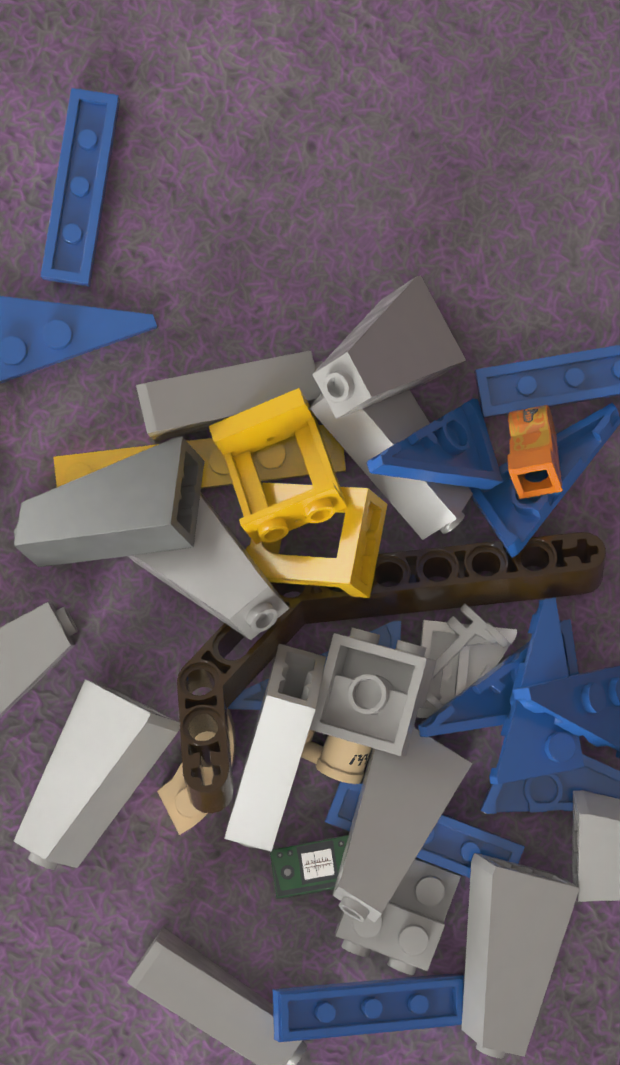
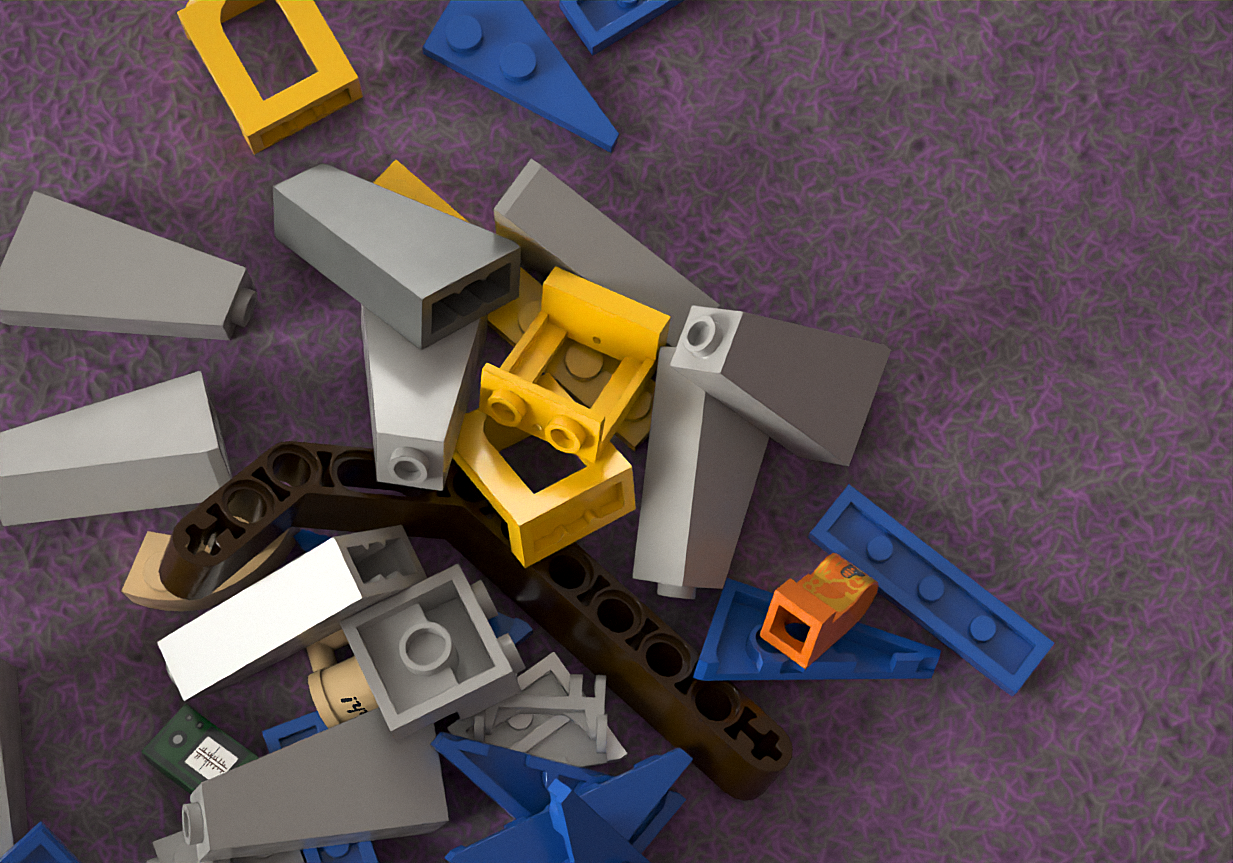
camera: 40 degrees right, 10 degrees down
(445, 452) = (742, 520): blue wing -> none

